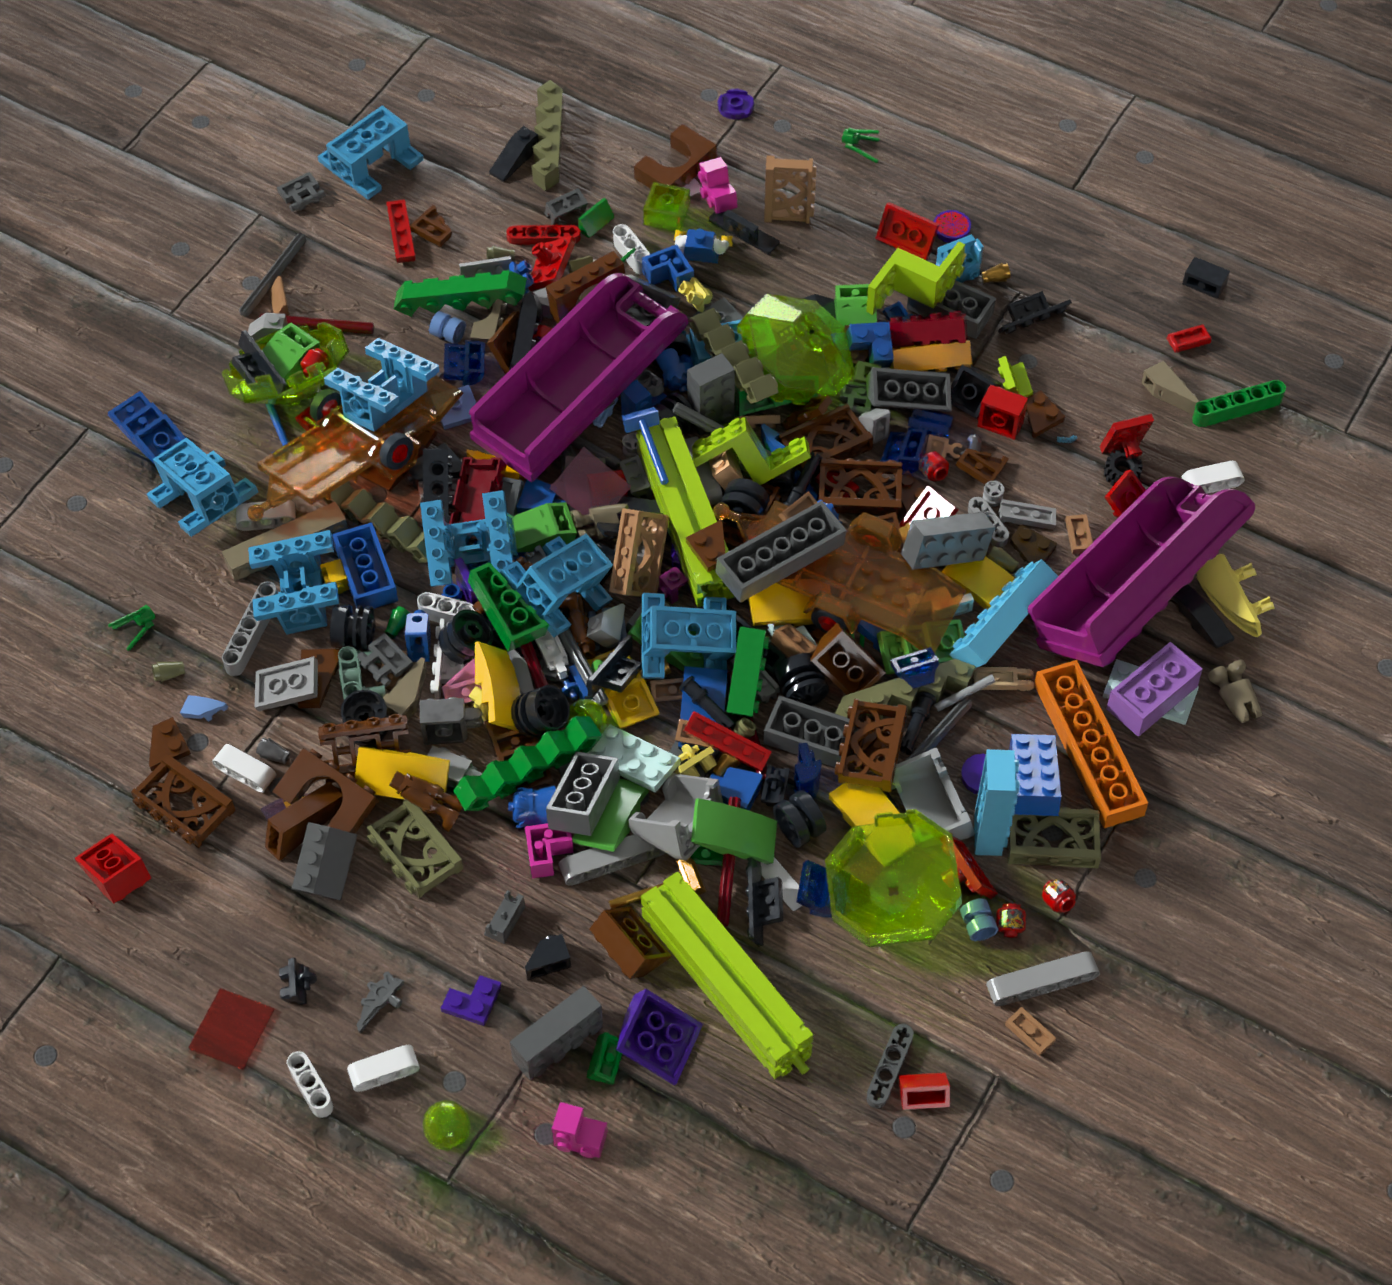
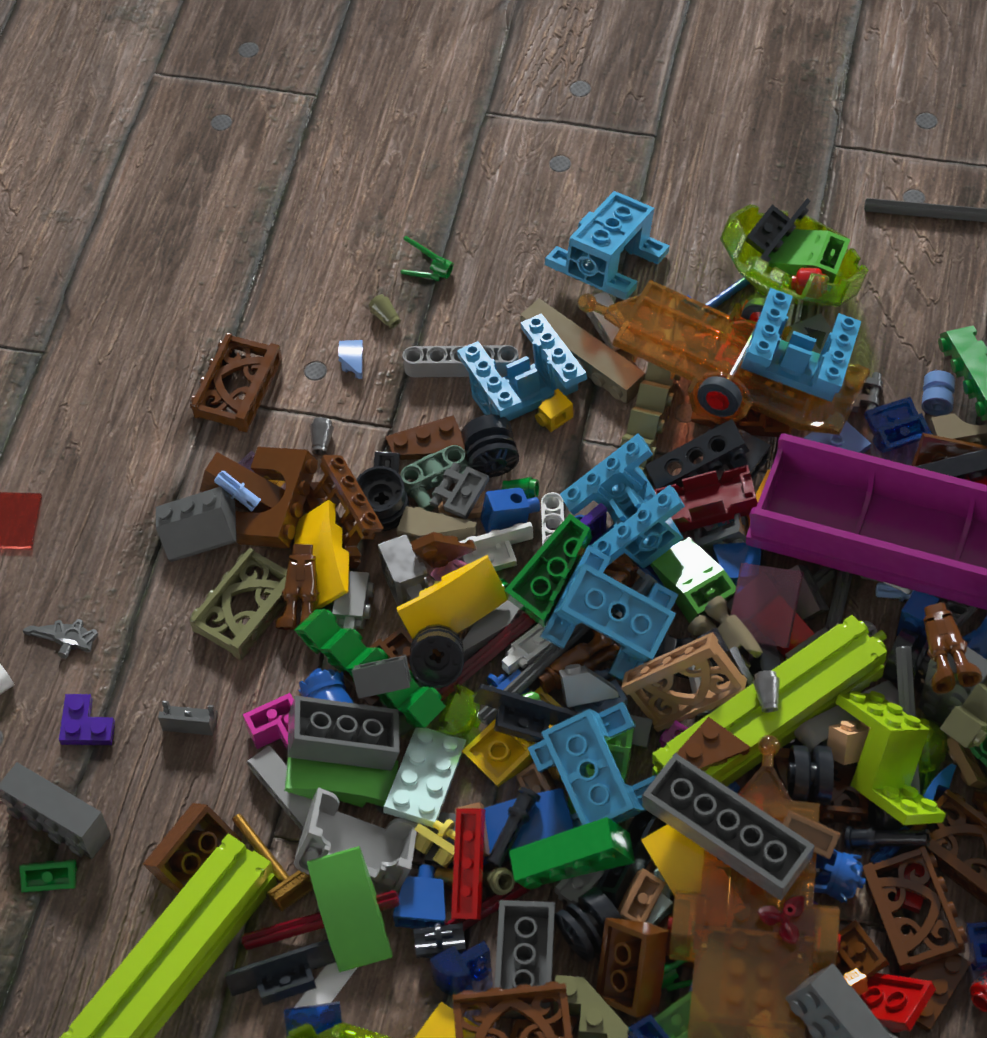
camera: 75 degrees right, 0 degrees up
(113, 868) = (143, 354): red slope -> none
(145, 425) = (675, 181): blue slope -> none
(166, 740) = (302, 345): reddish brown wing -> none
(244, 768) = (292, 418): white beam -> none
(267, 324) = (857, 231): light grey slope -> none
(278, 297) = (901, 230): medium nougat slope -> none
(286, 684) = (400, 415): light grey plate -> none
(299, 981) = (61, 553): black hips -> none
(314, 814) = (237, 490): none -> light blue axle
(332, 704) = (387, 459): none -> black piece
(344, 325) = (885, 274): dark red axle -> none
(365, 566) = (573, 431): blue brick -> none
(443, 683) = (441, 549): none -> reddish brown wing
(460, 634) = (503, 541): black wheel -> none
(548, 957) = (151, 775): black slope -> none
(550, 746) = (381, 676): none -> dark grey hinge
(643, 420) = (856, 613): blue piece -> none
(658, 1035) = (80, 916): dark purple slope -> none
(678, 494) = (767, 690): none -> flat silver cone
(695, 371) = (946, 639): none -> reddish brown piece
(799, 818) = (395, 979): black wheel -> none
(855, 544) = (791, 909): none -> dark red plant

